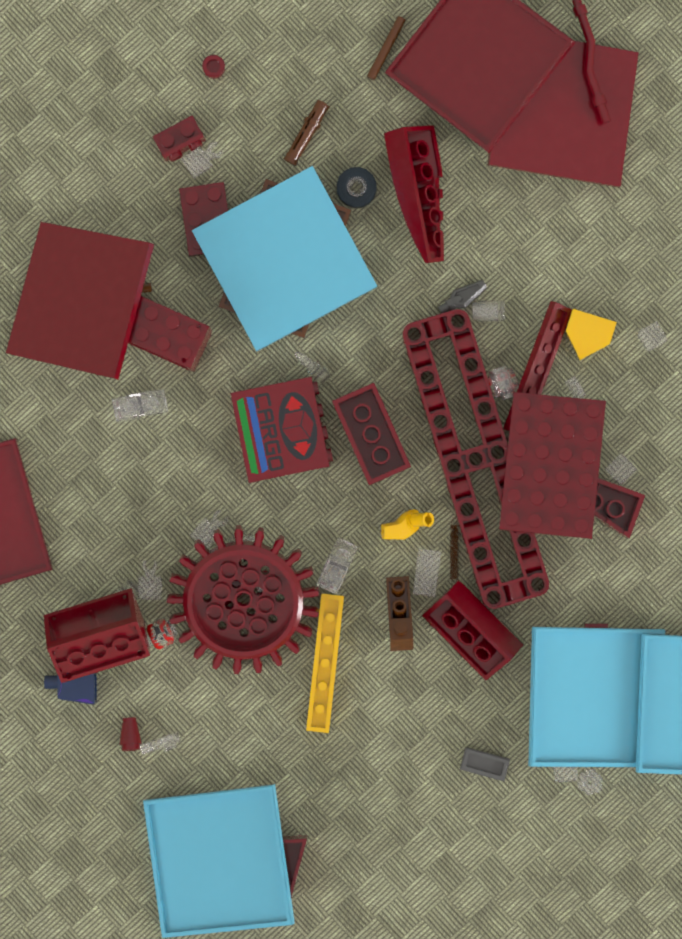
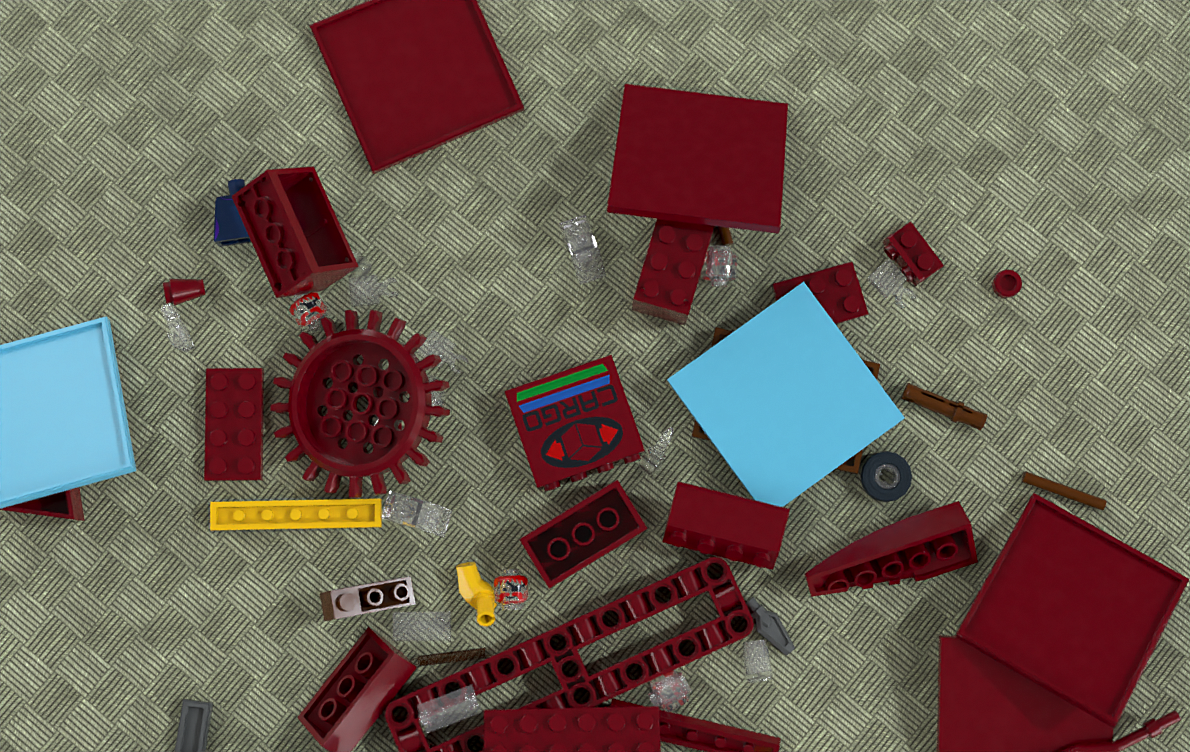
camera: 80 degrees right, 5 degrees down
(169, 295) = (719, 266): none -> clear head
(245, 705) = (234, 424): none -> dark red plate
(379, 320) = (725, 525): none -> dark red slope
(407, 497) = (511, 589): none -> head
(494, 556) = (449, 708): none -> clear hinge

